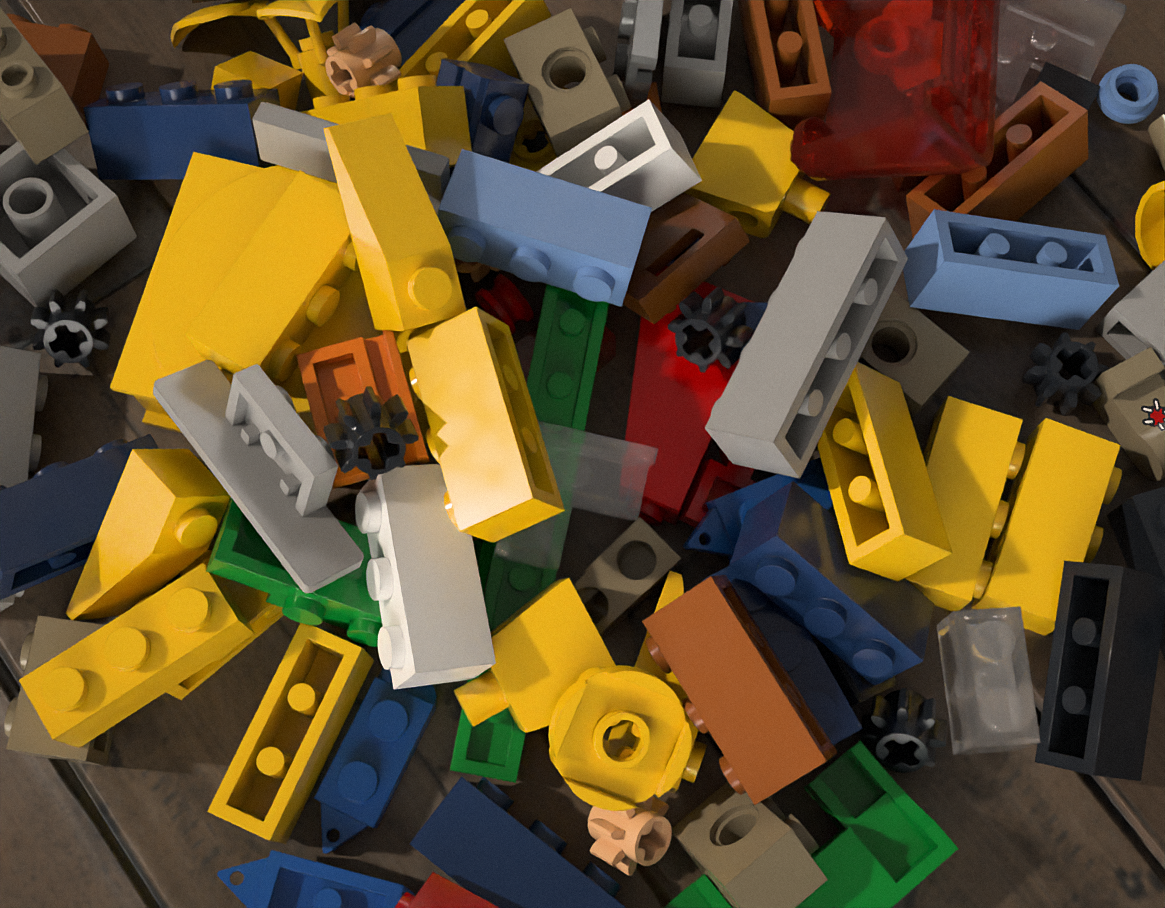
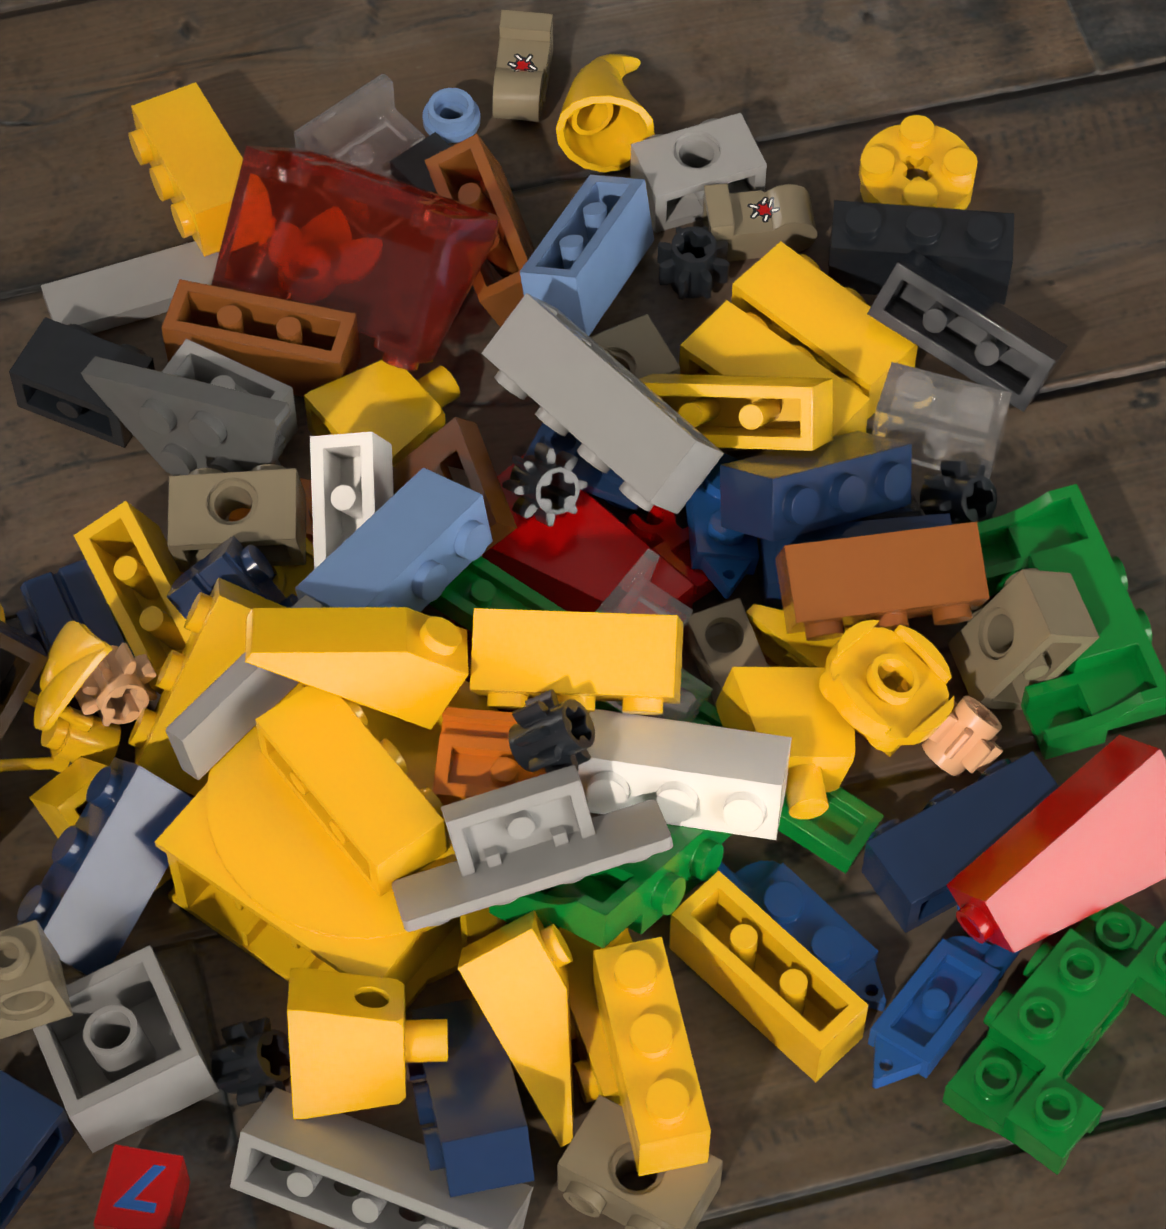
camera: 70 degrees left, 15 degrees down
(64, 391) = (353, 1042): none -> yellow torso

